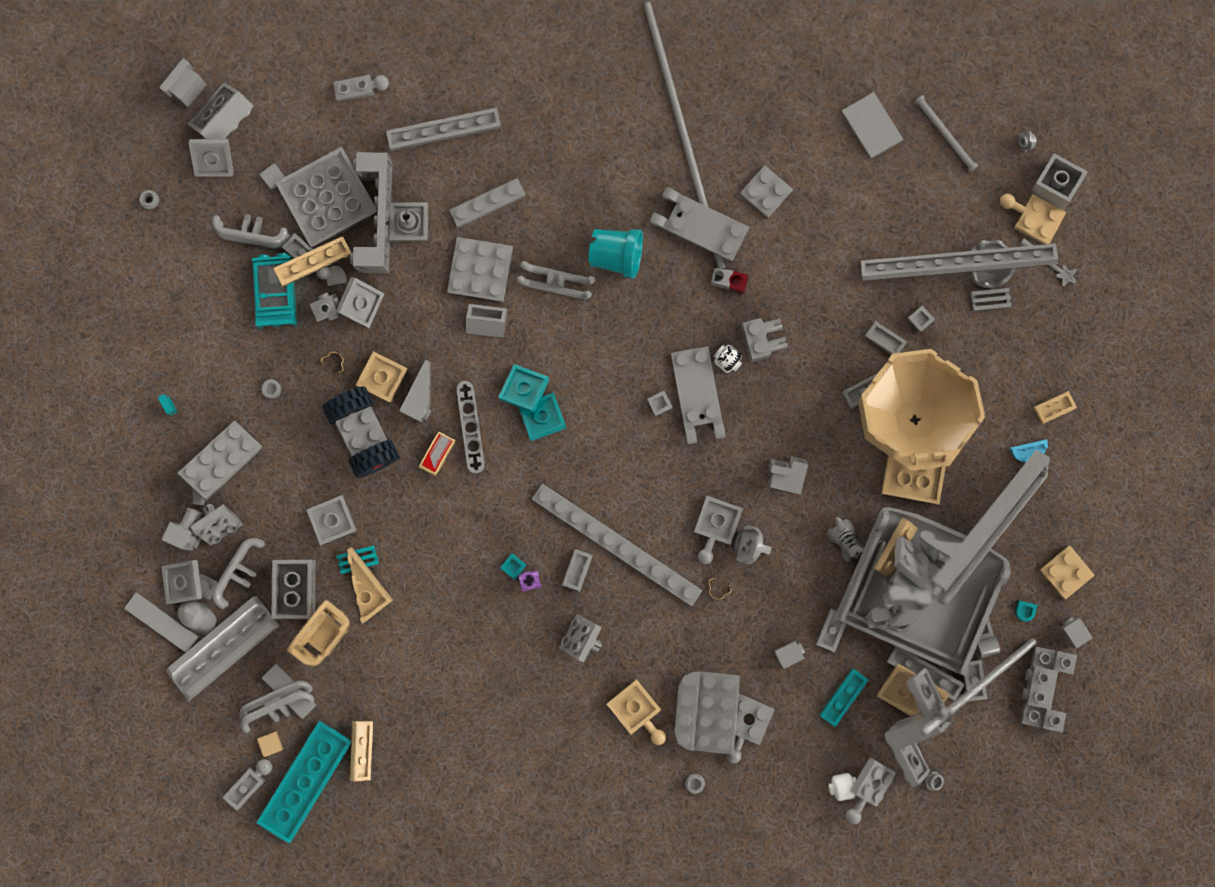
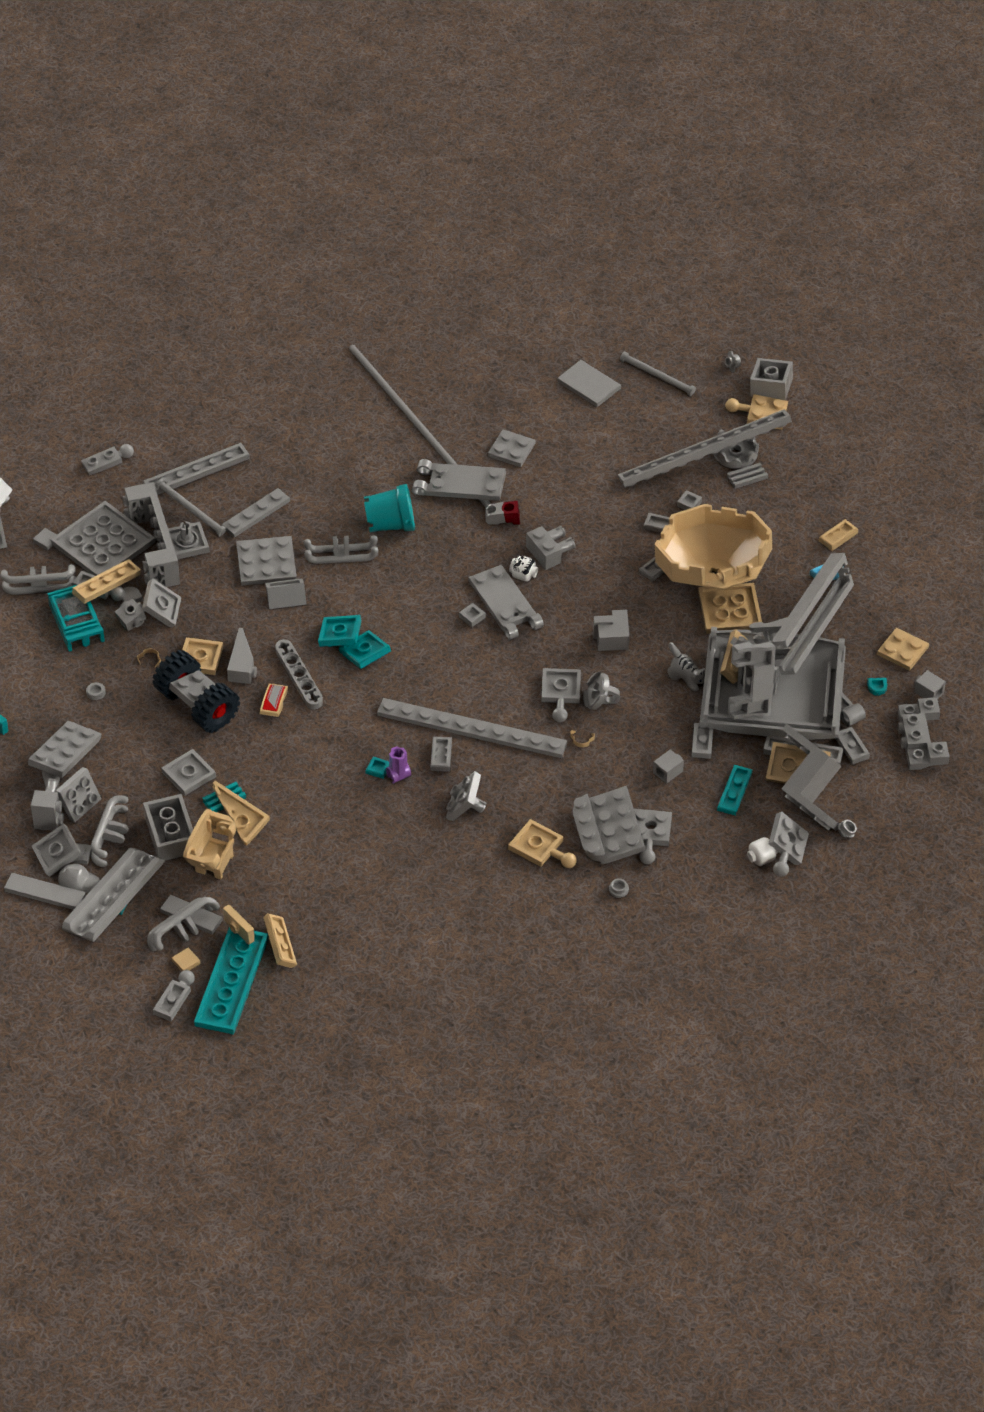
camera: 15 degrees left, 35 degrees down
(323, 730) = (238, 924): none -> tan plate
(423, 181) = (189, 506): none -> light grey bar
(946, 713) = (828, 743): light grey piece -> none
(1064, 273) = (804, 444): light grey piece -> none

